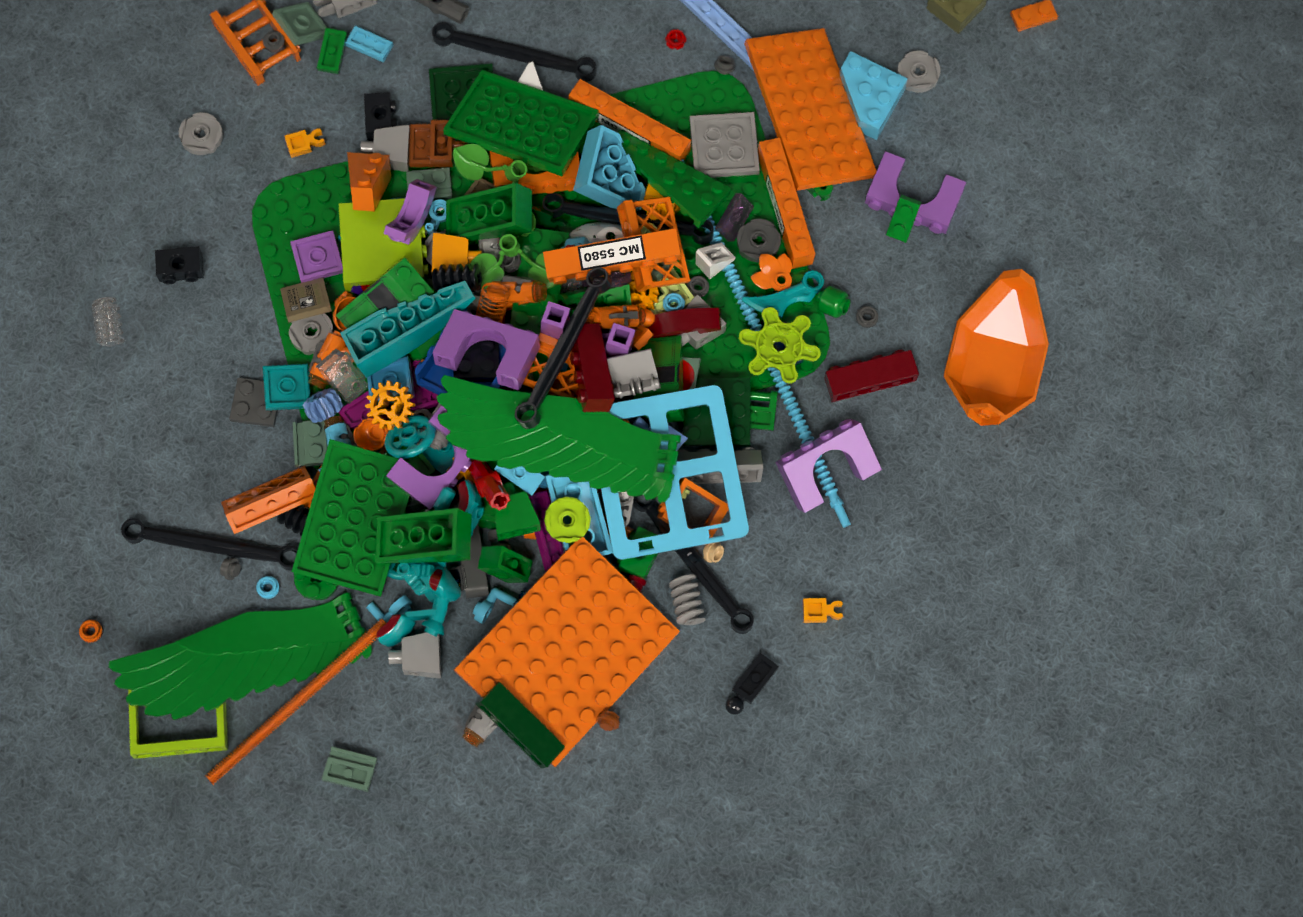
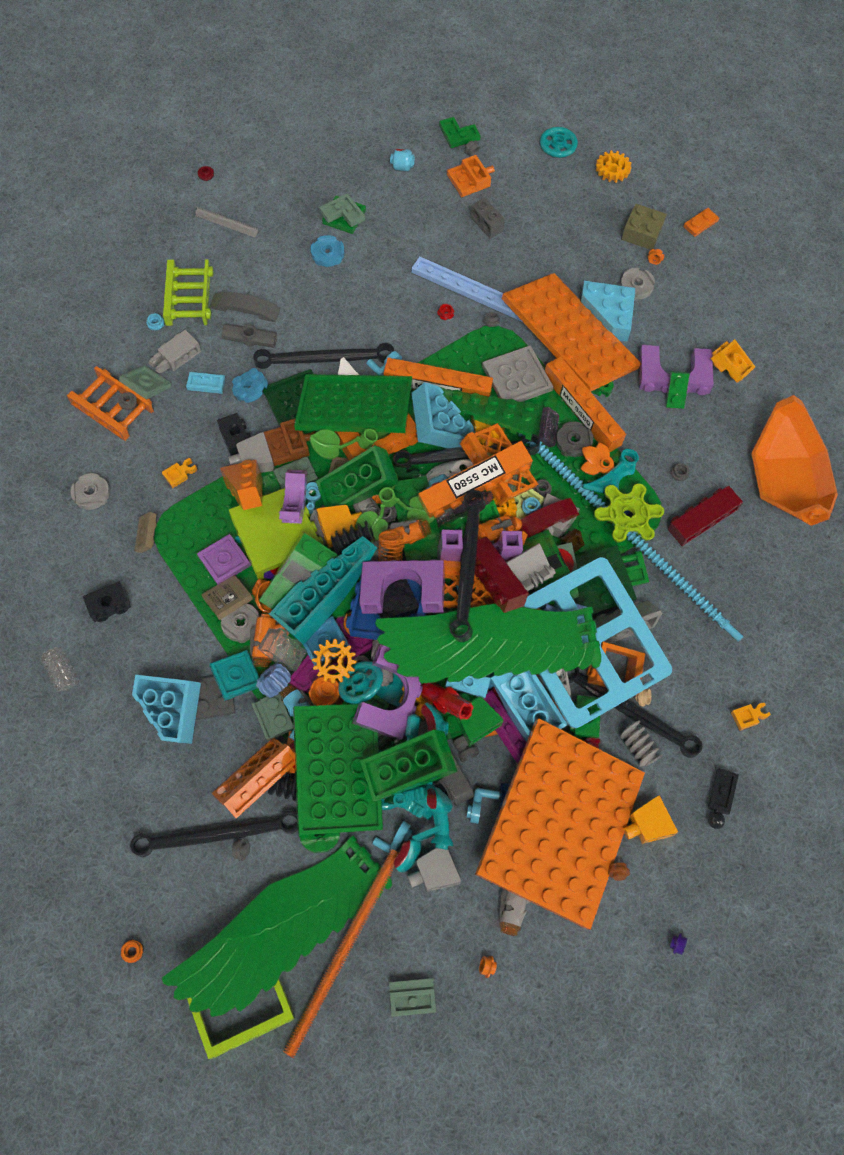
camera: 20 degrees left, 5 degrees down
(206, 397) = (168, 705): none -> medium azure brick
(243, 202) = (145, 532): none -> dark tan plate
(264, 581) = (272, 855): medium azure plate -> none
(332, 51) = (177, 396): green plate -> none
(419, 54) = (241, 384): none -> dark azure plate
(436, 766) = (487, 966): none -> orange plate
(504, 564) = (480, 765): green brick -> none
(520, 725) = (550, 904): dark green panel -> none
(579, 519) = (532, 708): lime plate -> none
(592, 78) = (380, 371): none -> medium azure plate
(640, 812) = (678, 944): none -> dark purple plate
(662, 683) = (651, 822): none -> light orange torso
(708, 357) = (575, 537): none -> dark brown tile
(713, 259) = (548, 463): white slope -> none
(798, 465) = (686, 603): arch -> none
(833, 301) = (650, 468): green head -> none
(957, 41) = (658, 258): none -> orange plate
(986, 203) = (734, 359): none -> light orange plate

